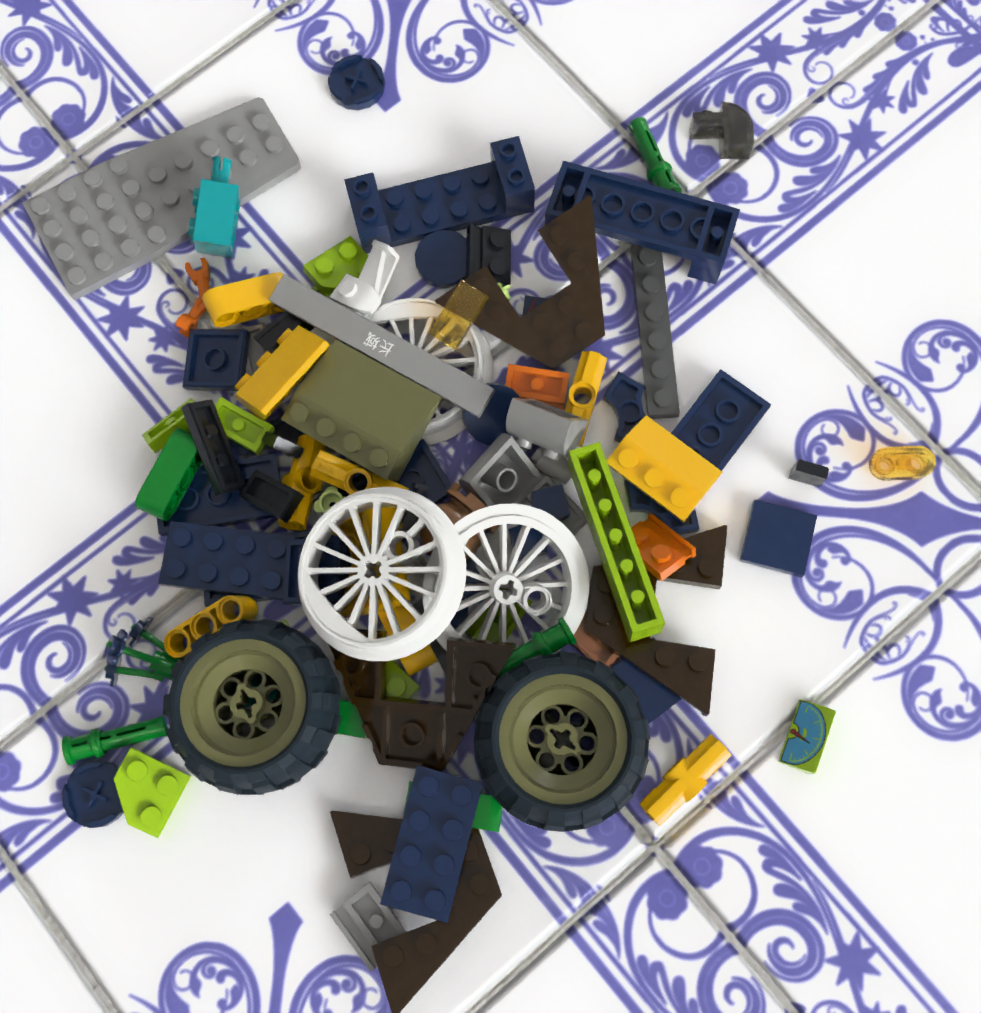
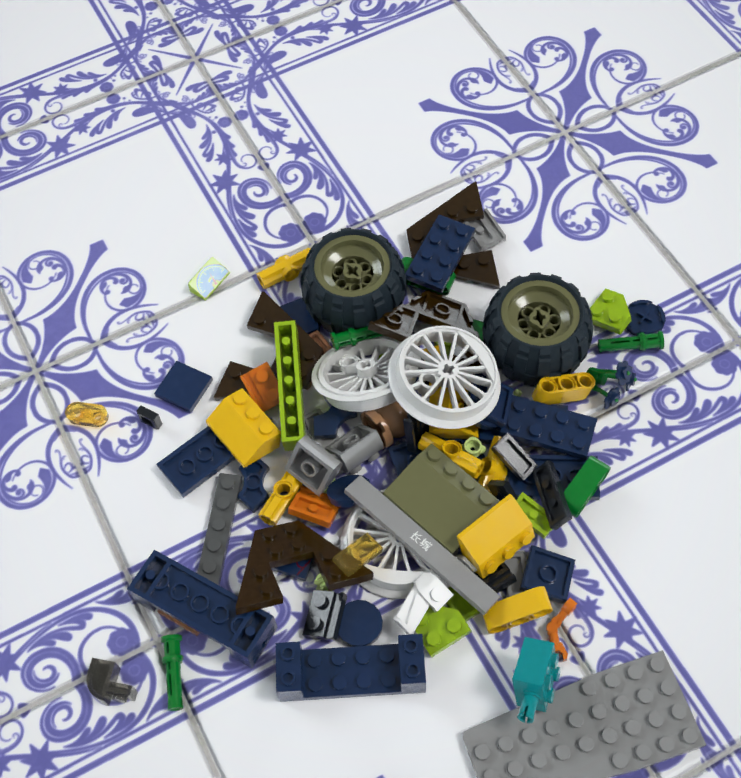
camera: 170 degrees left, 15 degrees down
(159, 434) = (583, 530): lime plate -> none

